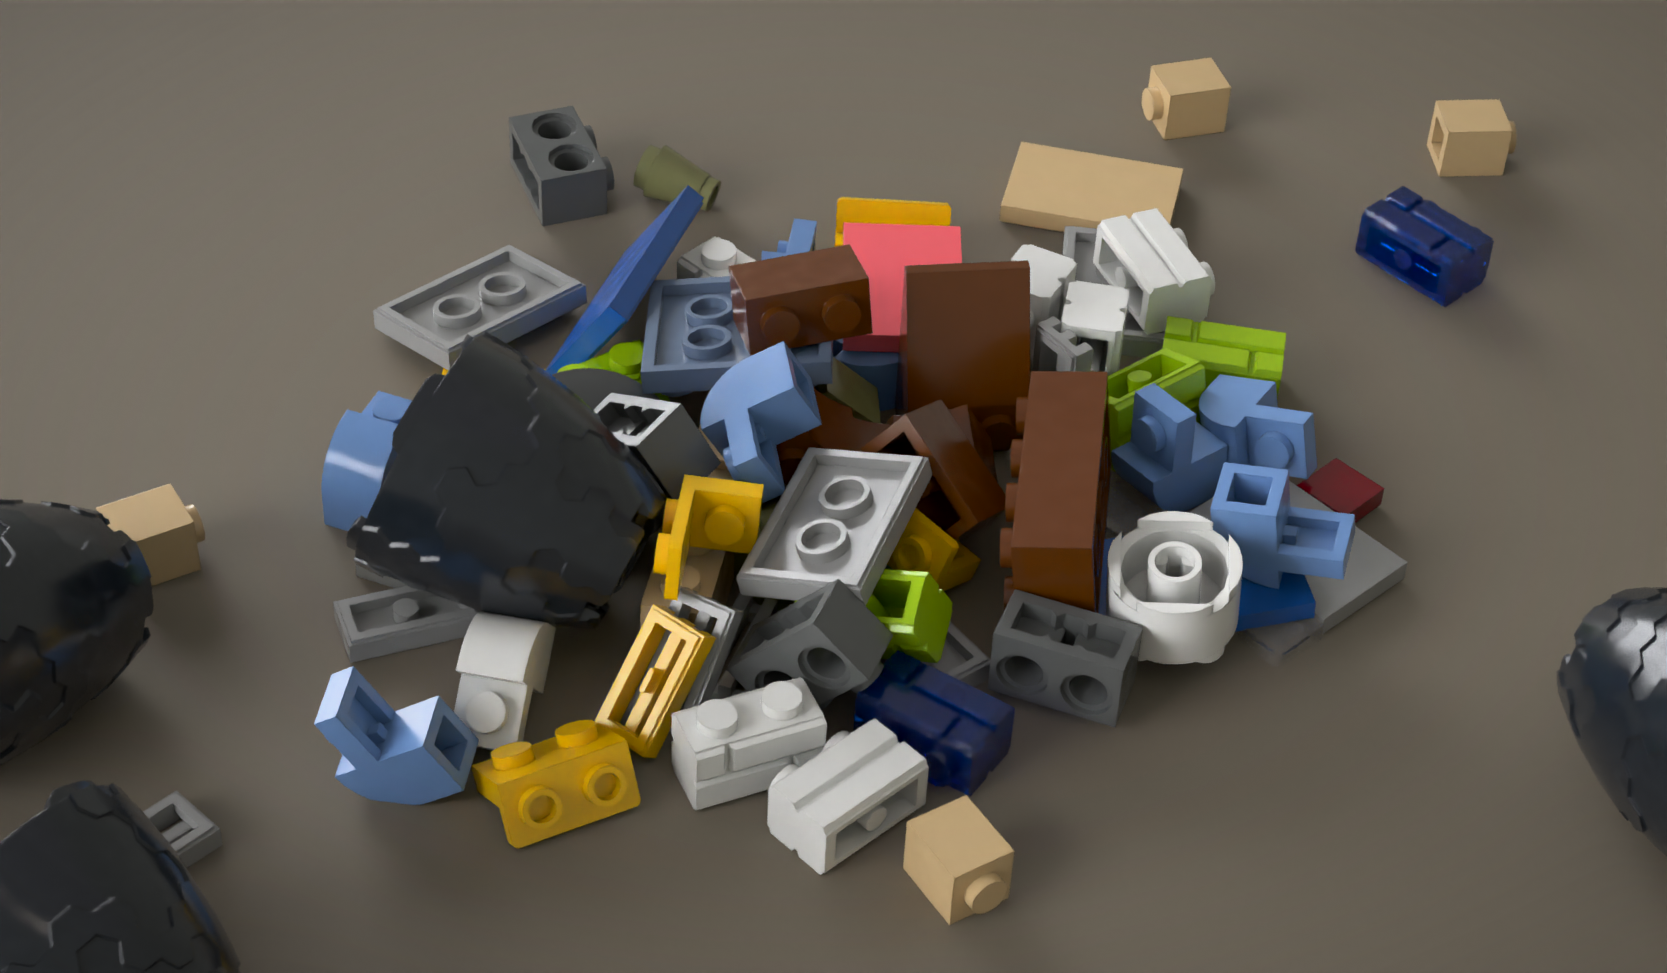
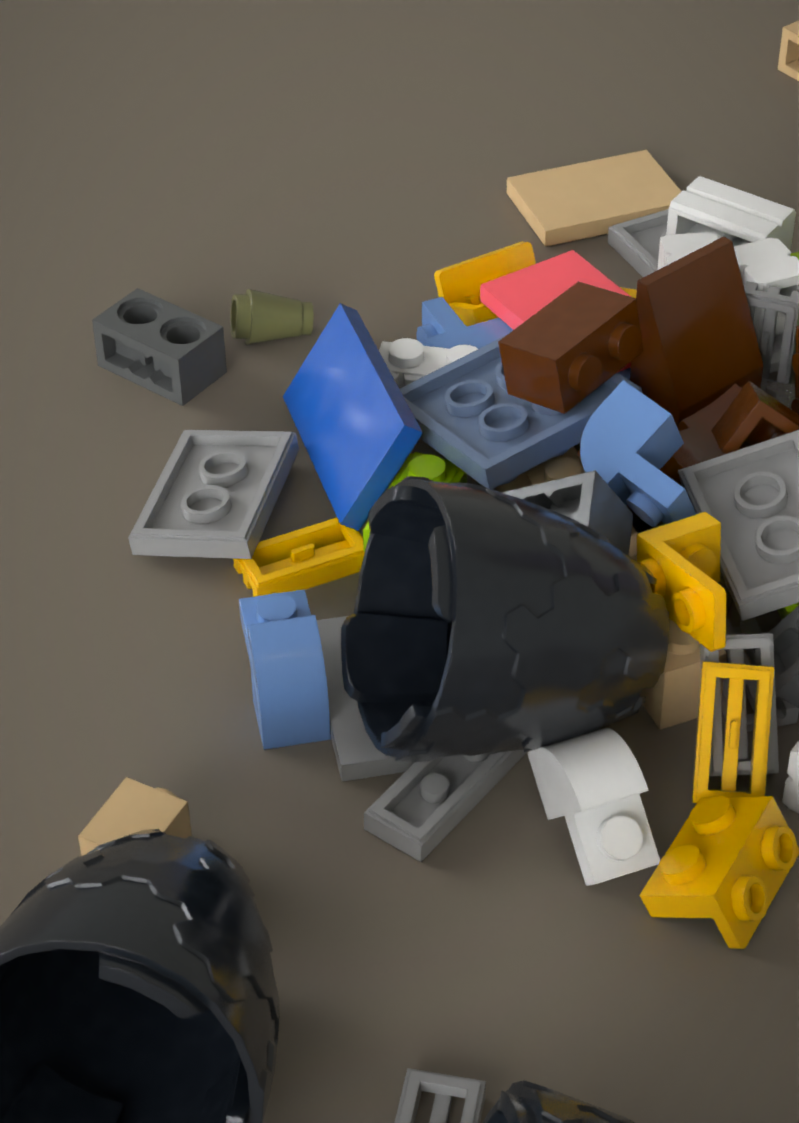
camera: 30 degrees left, 0 degrees up
(393, 754) = (578, 915): medium blue brick -> none
(1187, 98) = (595, 97): tan brick -> none

